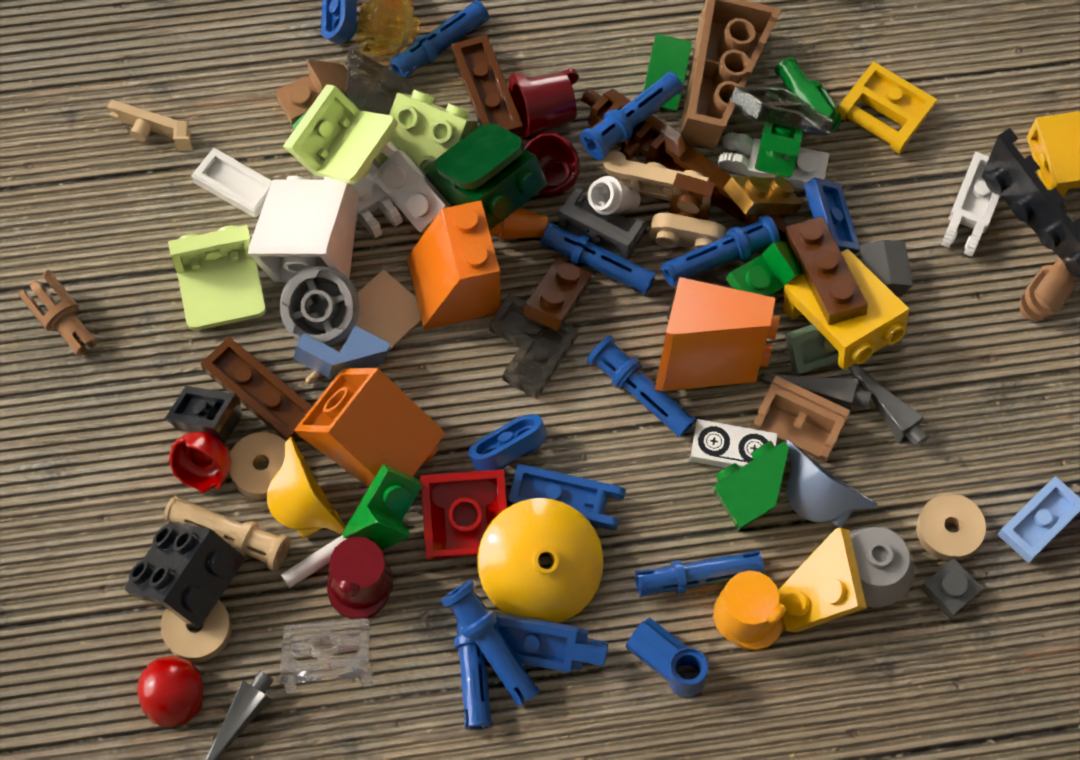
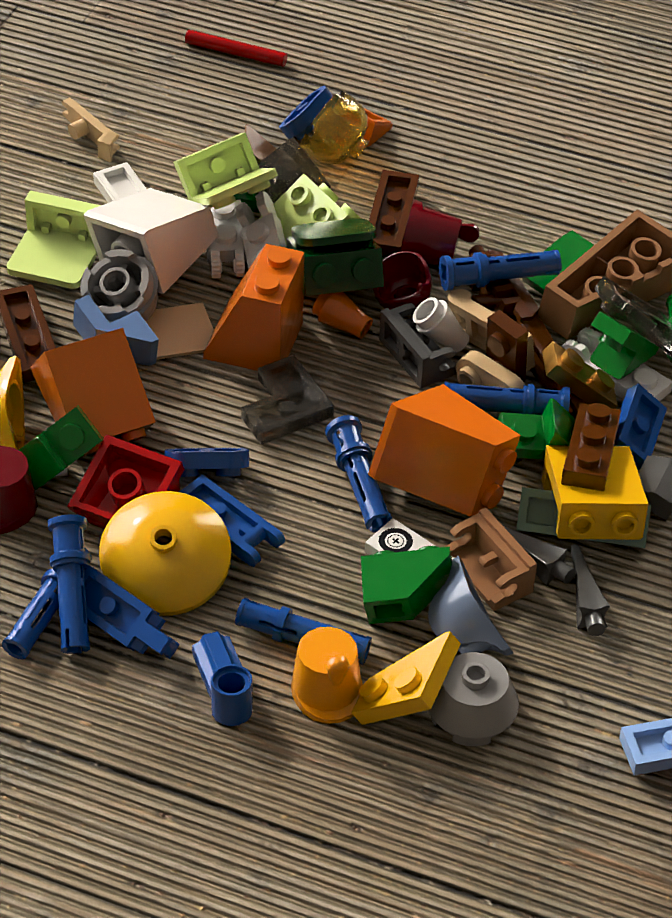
camera: 30 degrees right, 20 degrees down
(429, 46) = (370, 166): blue pin -> none
(557, 294) = (336, 373): reddish brown plate -> none
(593, 256) = (385, 357): blue pin -> none
(951, 588) = (540, 758): dark grey plate -> none
(963, 515) = (576, 728): tan piece -> none

